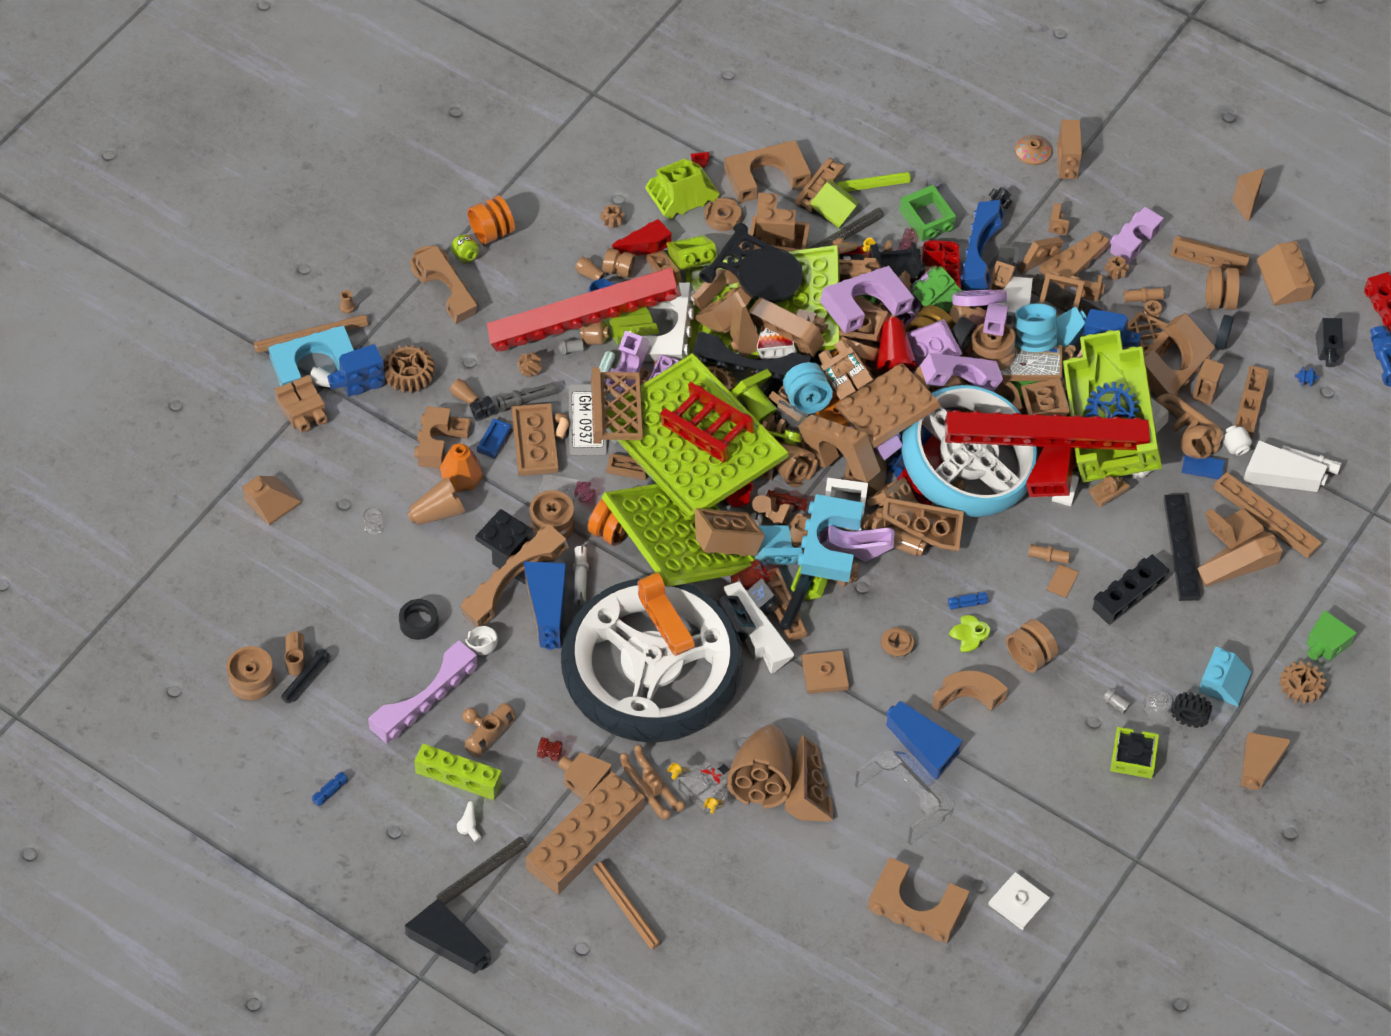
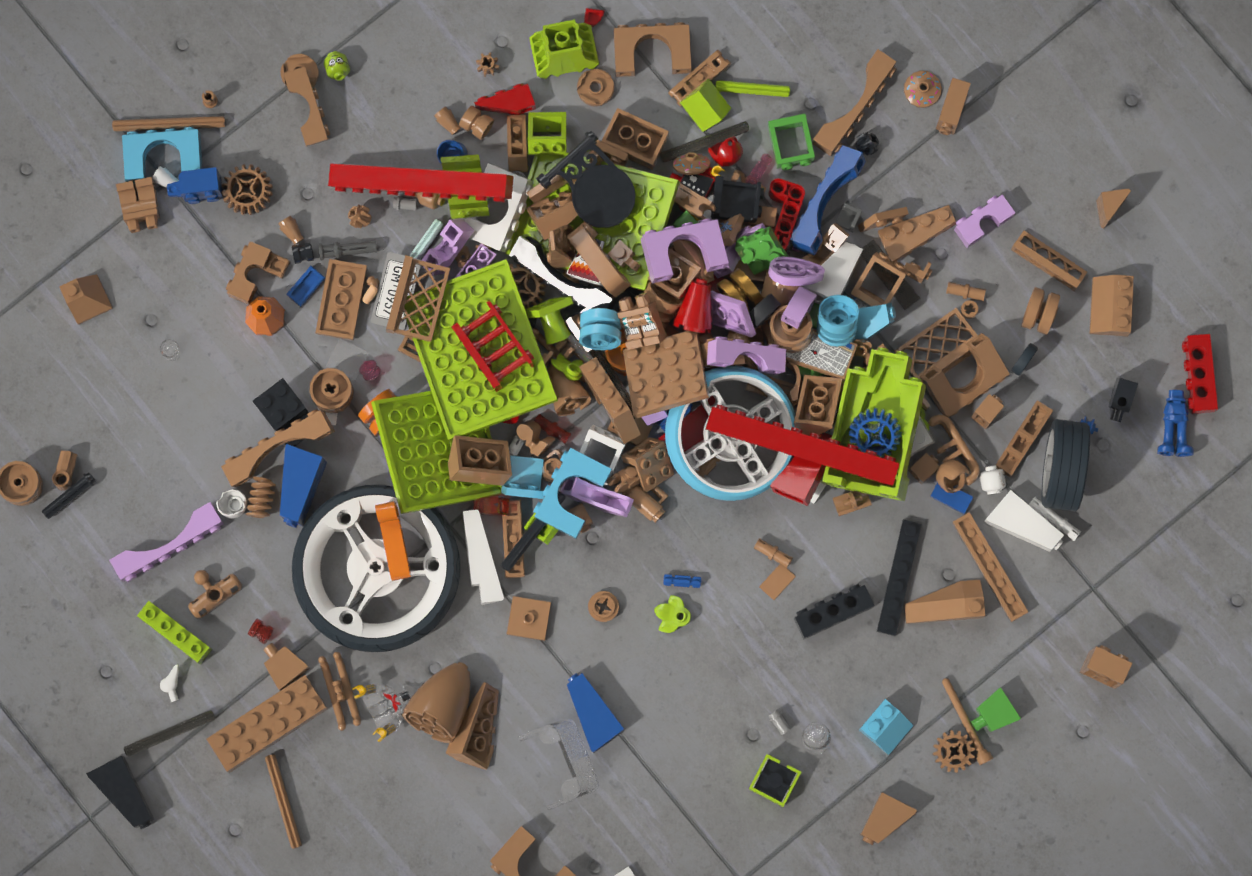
camera: 20 degrees right, 25 degrees up
(329, 788) = (61, 615): blue axle -> none
(418, 632) = (197, 465): black tyre -> none
(436, 504) = (232, 349): medium nougat cone -> none
(491, 219) = (368, 43): orange wheel -> none
(509, 627) = (260, 498): none -> medium nougat piece
(580, 568) = (340, 458): white pin -> none
(738, 616) = (462, 549): black panel -> none
(764, 596) = (496, 532): brick -> none
(773, 221) = (629, 125): medium nougat brick -> none
(871, 228) = (726, 155): none -> red helmet
(930, 523) = (668, 496): medium nougat wedge -> none
(965, 196) = (832, 133): none -> medium nougat arch
(970, 684) = (654, 669): medium nougat arch -> none
(1031, 645) = (721, 649): medium nougat wheel -> none
(1057, 224) = (914, 179): medium nougat bracket -> none
(1103, 321) = (911, 336): blue hinge -> none
(1116, 267) = (956, 253): medium nougat gear -> none
(1169, 445) = (924, 468): none -> medium nougat brick
(1191, 710) = (840, 754): black tyre -> none
(1234, 528) = (953, 575): medium nougat bracket -> none
(1305, 396) = (1065, 465): none -> black wheel
(1333, 680) = (982, 754): none -> medium nougat piece

